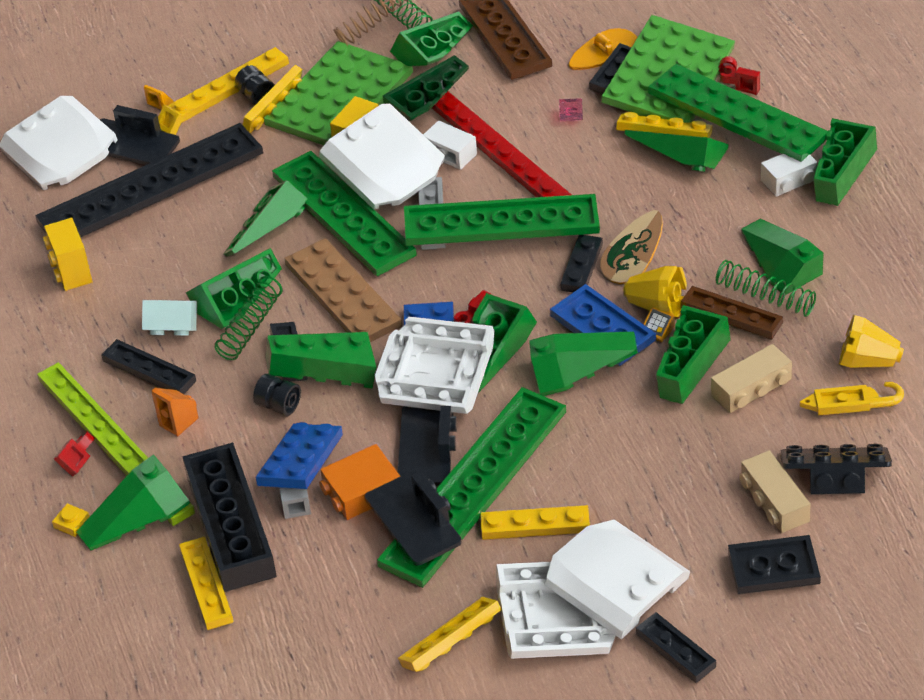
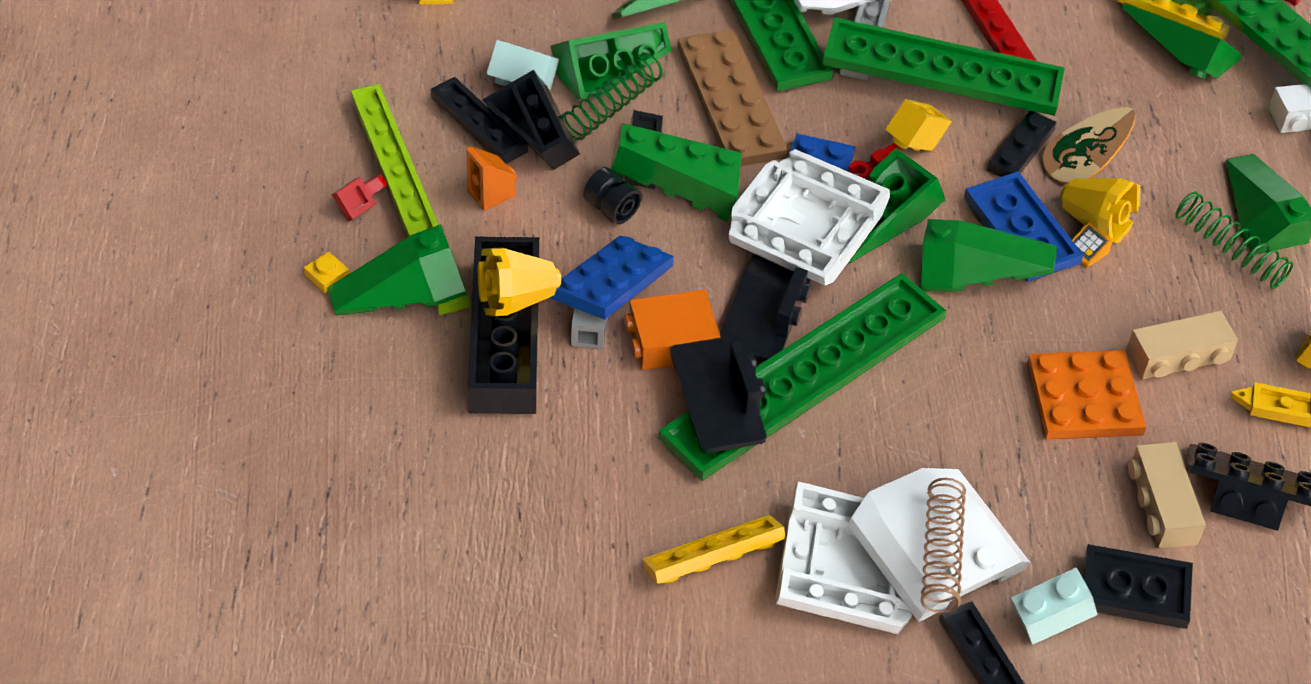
camera: 10 degrees right, 5 degrees up
(191, 350) = (534, 116): none -> black wedge
(206, 583) = (451, 396): yellow plate -> none
(227, 479) = (514, 280): none -> yellow cone
(497, 271) = (917, 126): none -> yellow brick
(534, 522) = (862, 441): yellow plate -> none
(614, 545) = (959, 548): none -> medium nougat piece
(691, 352) = (1119, 291): green wedge -> none
(691, 436) = (1086, 394): none -> orange plate
(718, 596) = (1054, 606): none -> light aqua brick
(738, 313) = (1183, 257): reddish brown plate -> none

